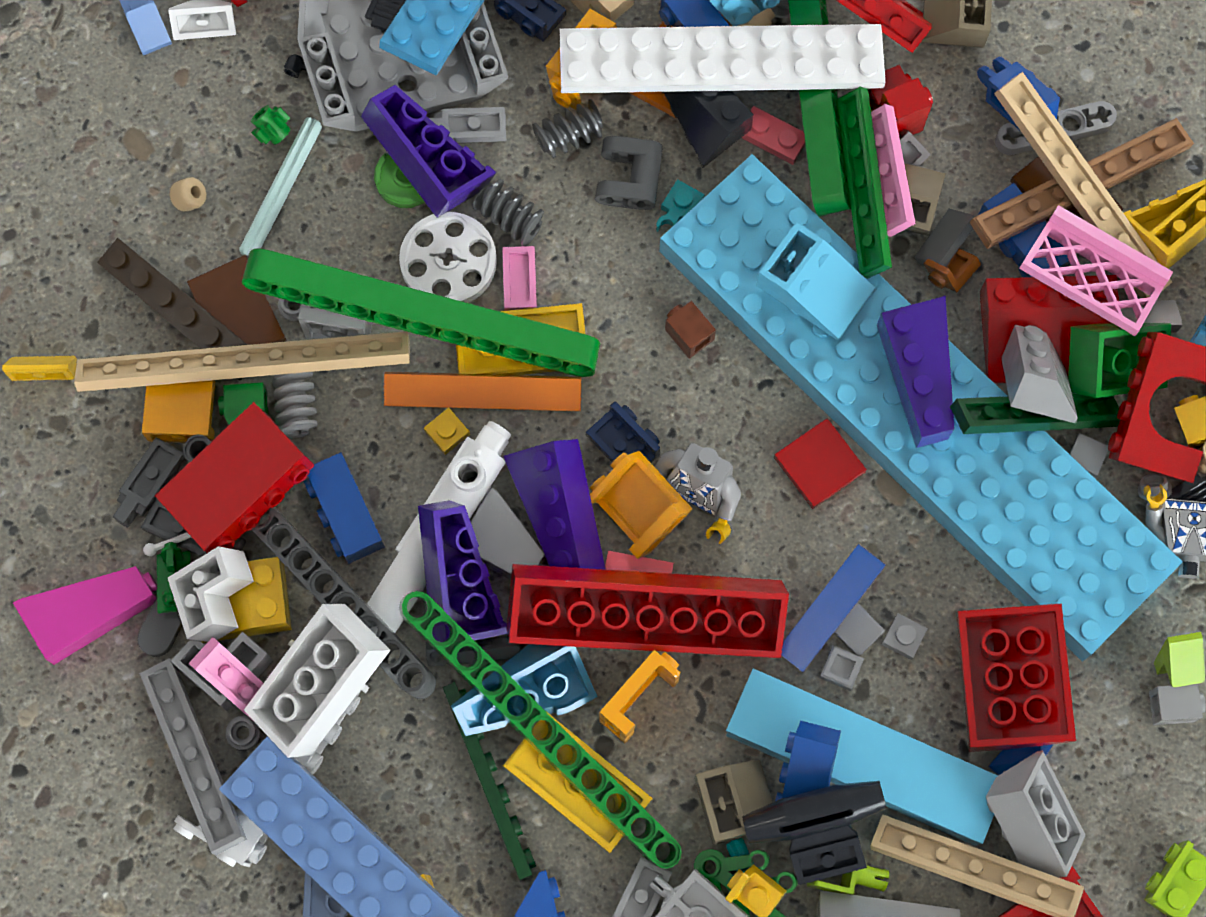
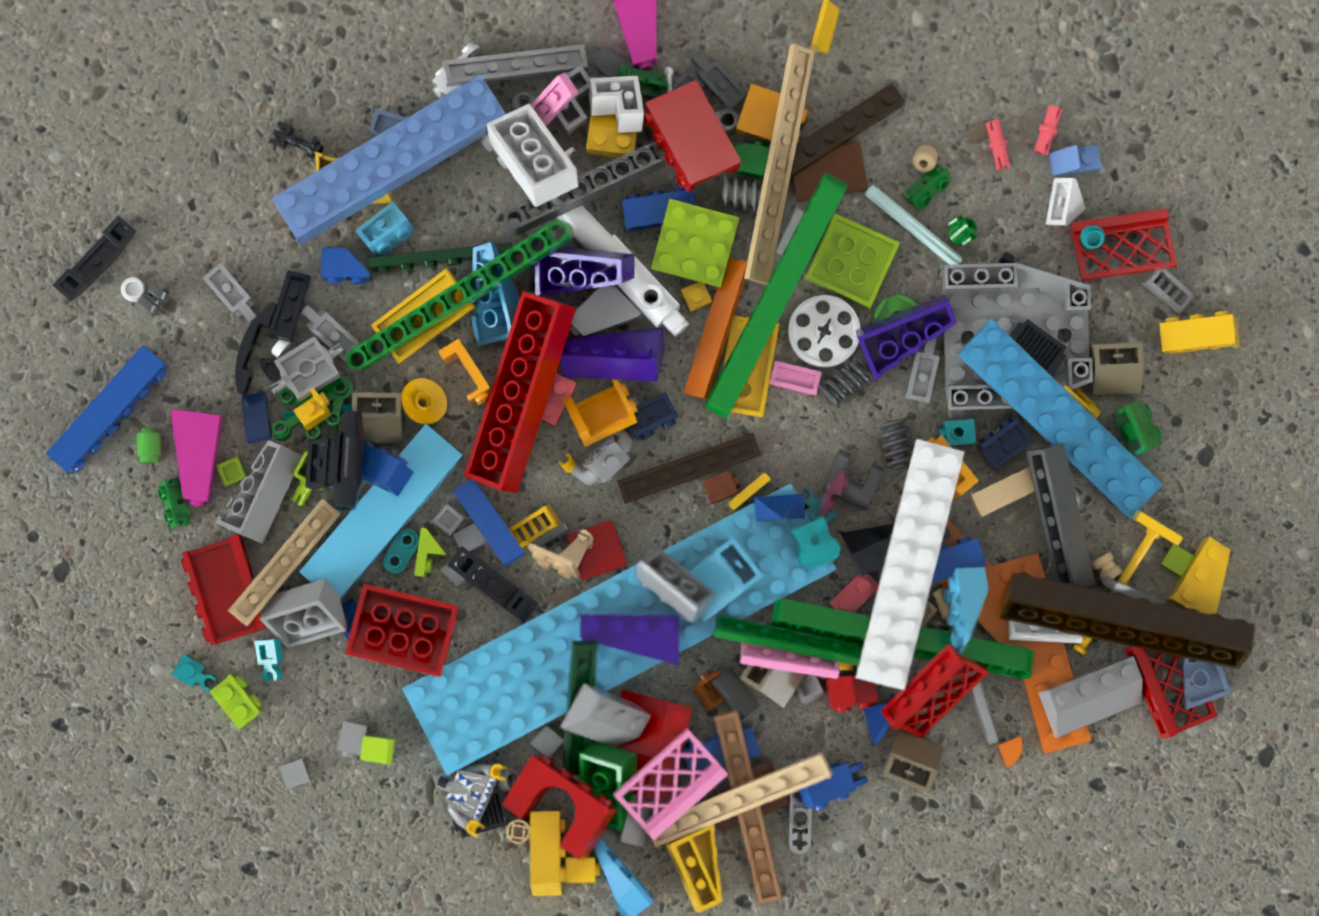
camera: 105 degrees right, 10 degrees up
(113, 59) = (1048, 130): none -> coral pin
(147, 113) = (998, 145): none -> coral pin
(235, 187) = (936, 181): none -> green hinge
(350, 235) = (852, 260): none -> lime plate
(377, 445) = (695, 243): none -> lime plate
(471, 872) = (385, 230): none -> medium azure bracket
(530, 63) = (959, 432): none -> teal brick
(648, 182) = (836, 485): none -> clear pink slope
(677, 376) = (688, 468): none -> dark brown plate
(684, 291) = (749, 491): none -> yellow tile
(687, 736) = (432, 397): none -> yellow dish
(698, 238) = (779, 507): none -> blue slope
(732, 176) = (815, 544): none -> teal piece
(808, 561) = (550, 514): none -> yellow slope
(825, 524) = (552, 538): none -> dark grey piece
(844, 328) = (675, 585): none -> light grey slope
(848, 485) = (566, 561): none -> tan plate
(888, 682) = (426, 546): none -> lime slope
(905, 717) = (403, 552): none -> teal plate
(910, 580) = (492, 584): none -> black slope
(923, 63) = (876, 722): none -> blue slope
(1105, 852) = (269, 655): none -> teal plate

